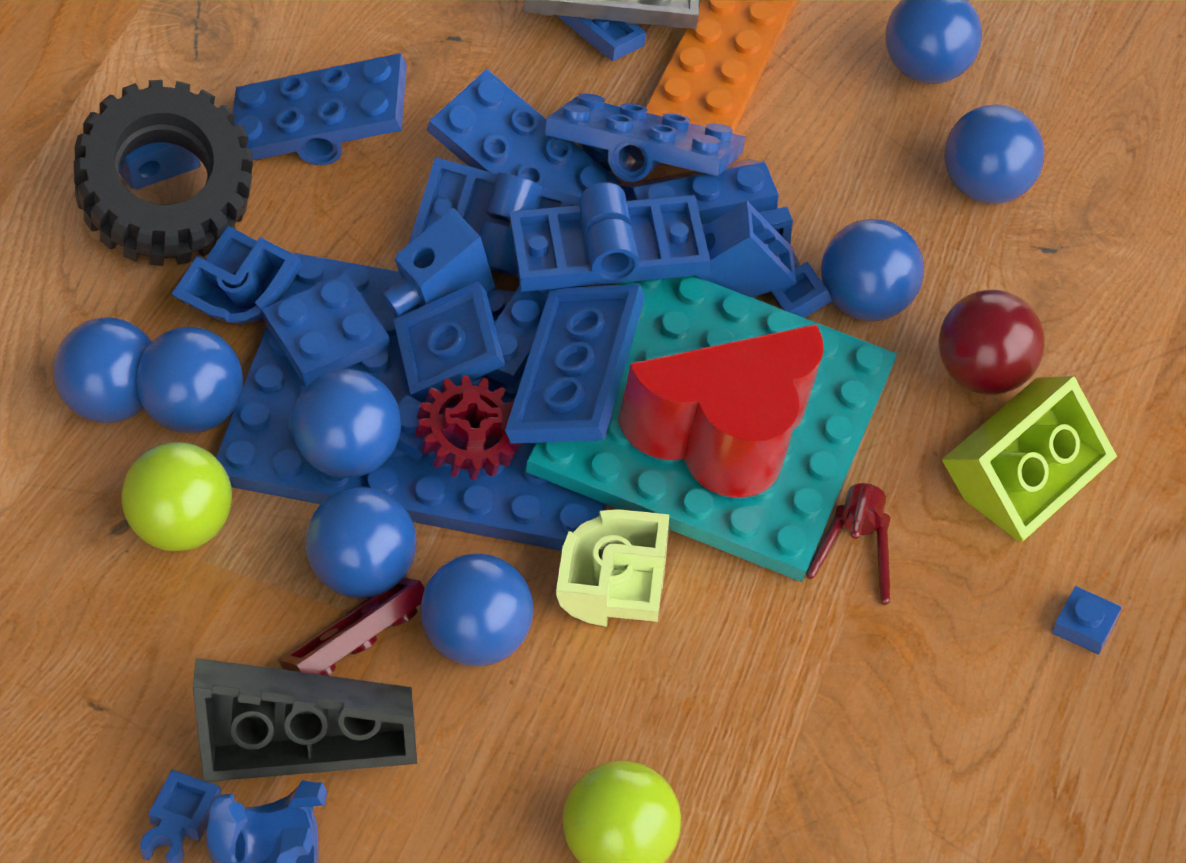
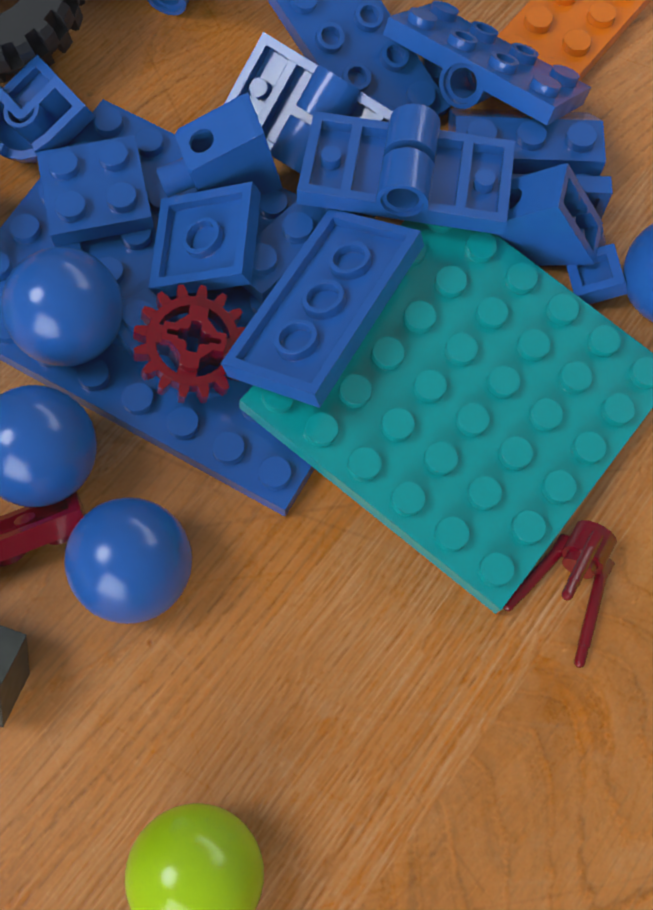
camera: 15 degrees right, 15 degrees up
(614, 567) = (294, 548): yellowish green brick -> none
(724, 407) = (470, 403): red brick -> none

